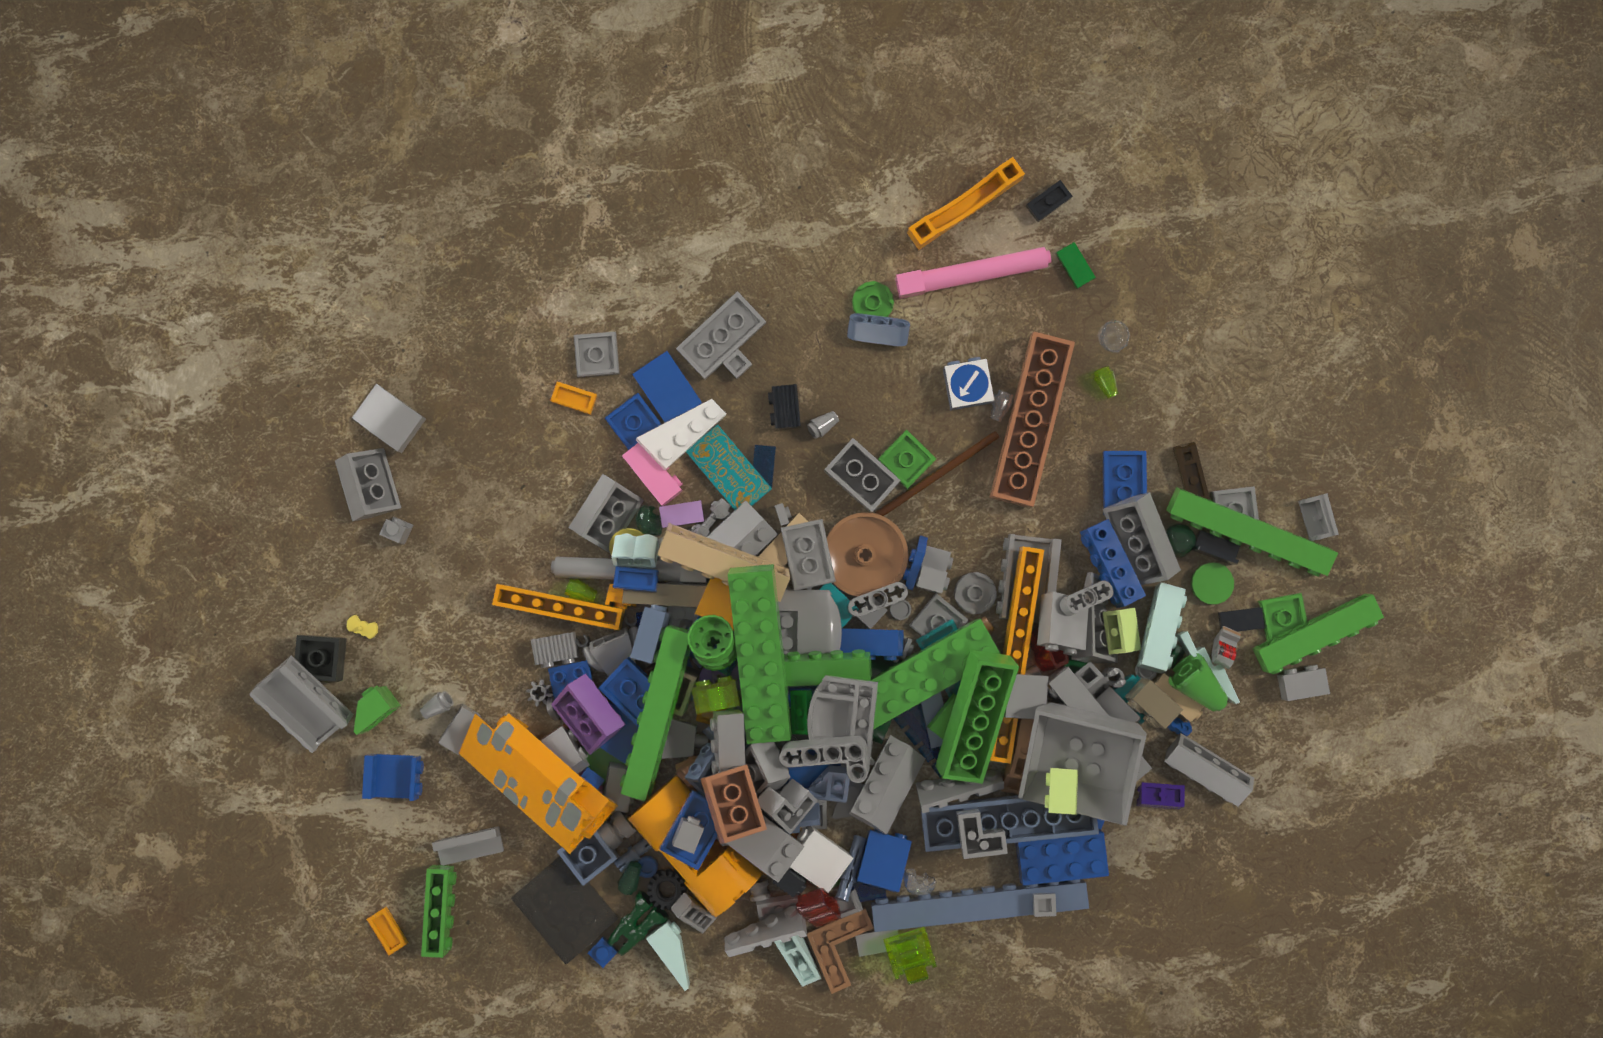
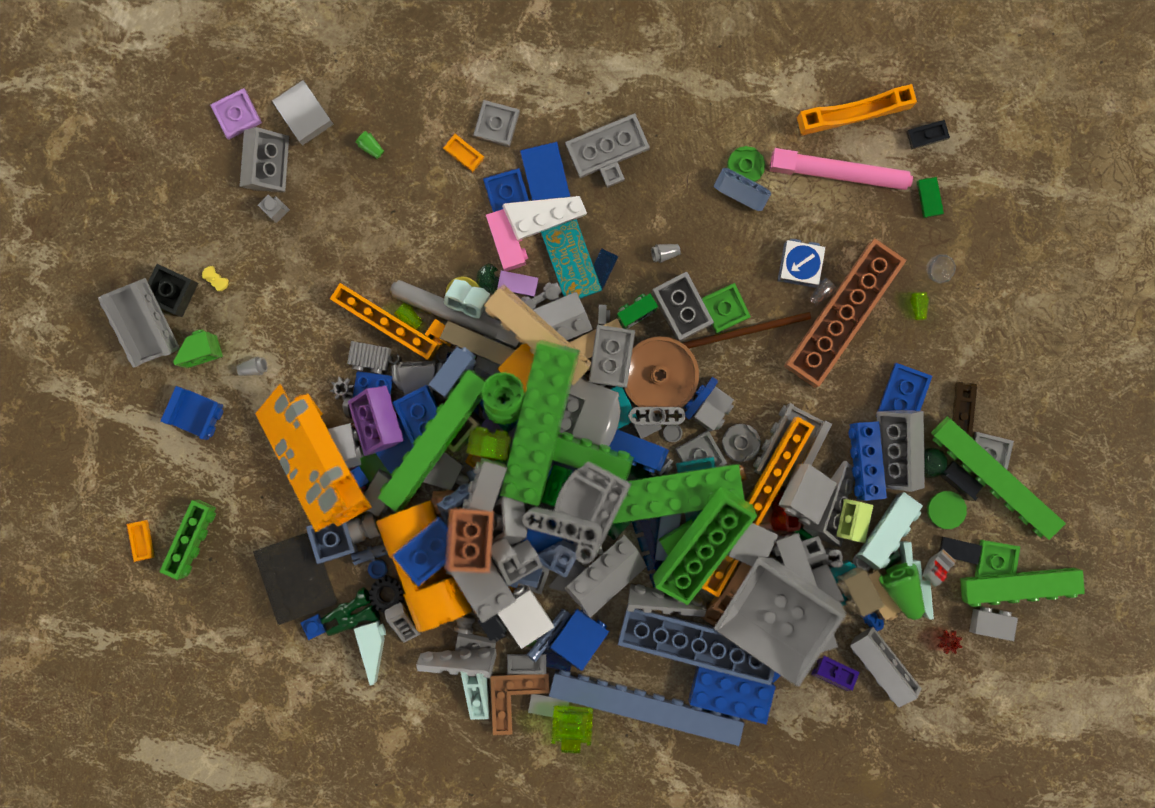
camera: 25 degrees right, 0 degrees up
(319, 445) = (235, 113): none -> lavender tile
(457, 729) = (259, 395): light grey hinge -> none
(469, 845) = (235, 495): light grey panel -> none
(472, 426) = (369, 144): none -> bright green cone
(605, 512) = (454, 257): light grey slope -> none
(630, 878) = (358, 574): clear green cone -> none
(635, 579) = (458, 322): blue tile -> none
(688, 834) = (421, 552): light grey brick -> none
(786, 407) = (639, 225): black brick -> none
(812, 504) = (641, 308): none -> green piece
(818, 907) = (509, 657): clear red brick -> none
(917, 884) = (601, 671): clear hair -> none
(976, 841) = (664, 652): light grey brick -> none
(1044, 904) = (702, 728): light grey plate -> none
(1062, 791) = (754, 636): yellowish green brick -> none
(1078, 597) = (829, 485): light grey beam -> none
(1259, 719) = (944, 639): none -> clear red gear
(1318, 517) = (1059, 487): light grey hinge -> none

